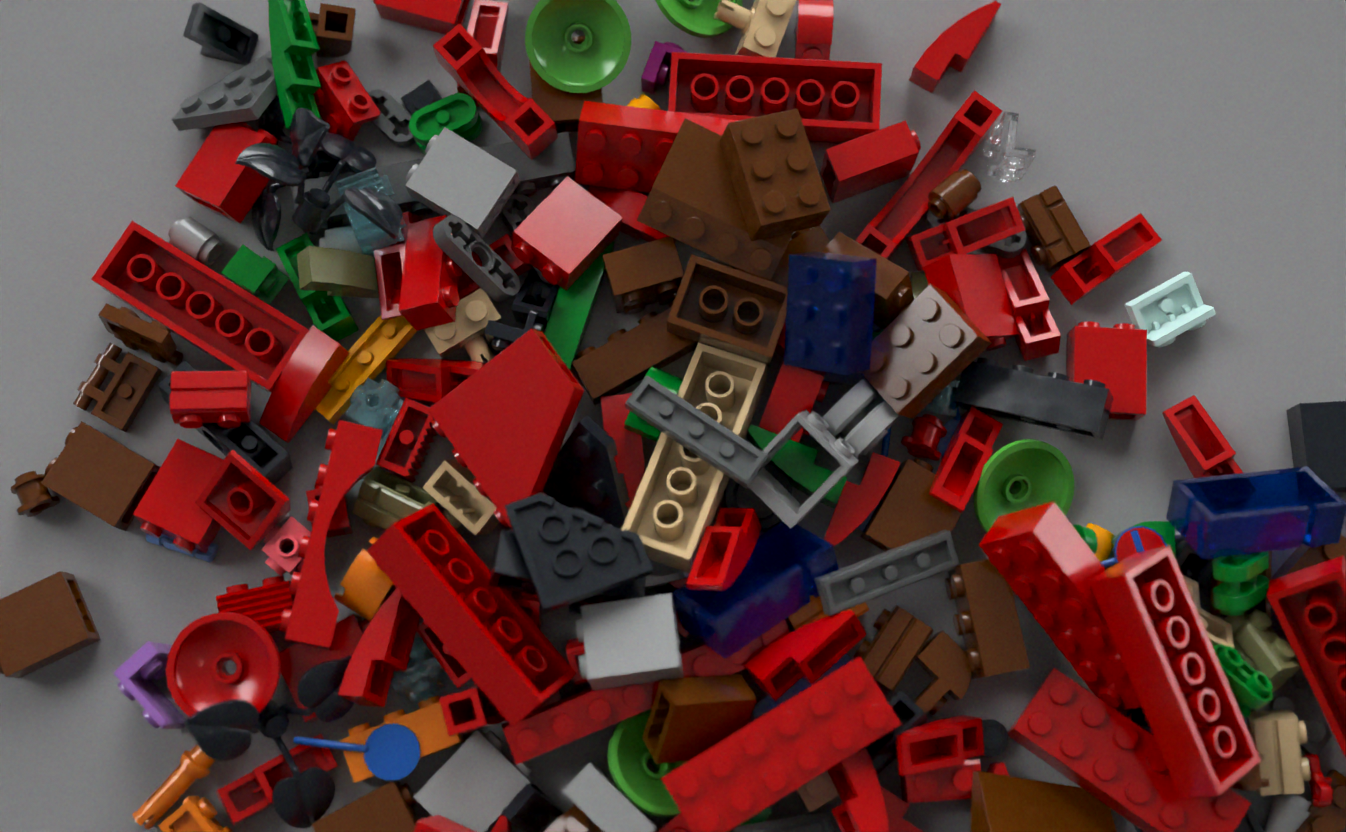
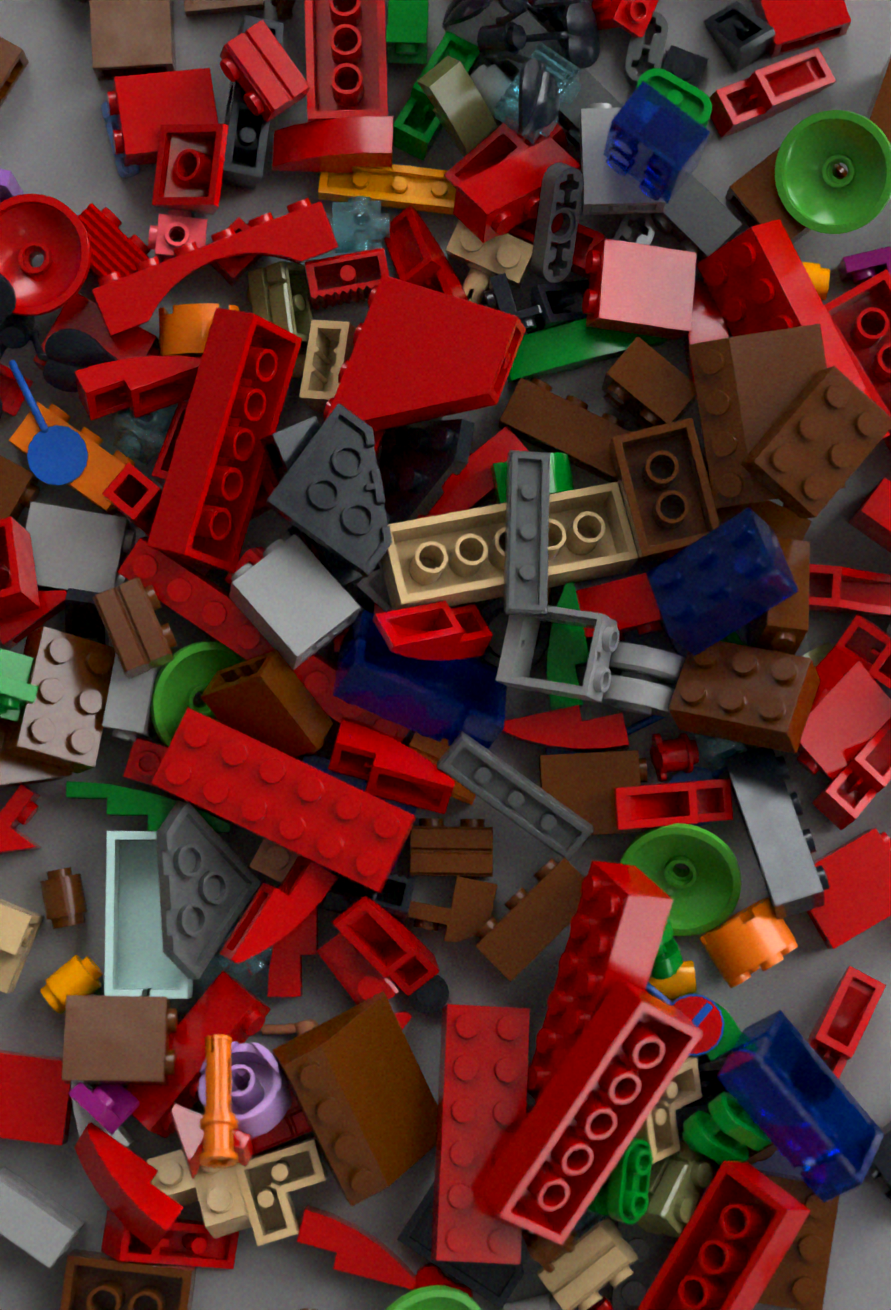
camera: 55 degrees right, 5 degrees up
(417, 44) = (740, 35): none -> black slope
(473, 142) = (655, 143): none -> clear blue brick
(477, 75) = (730, 129): red arch -> none
(571, 779) = (135, 627): none -> reddish brown brick
(1103, 472) = (748, 942): none -> orange brick

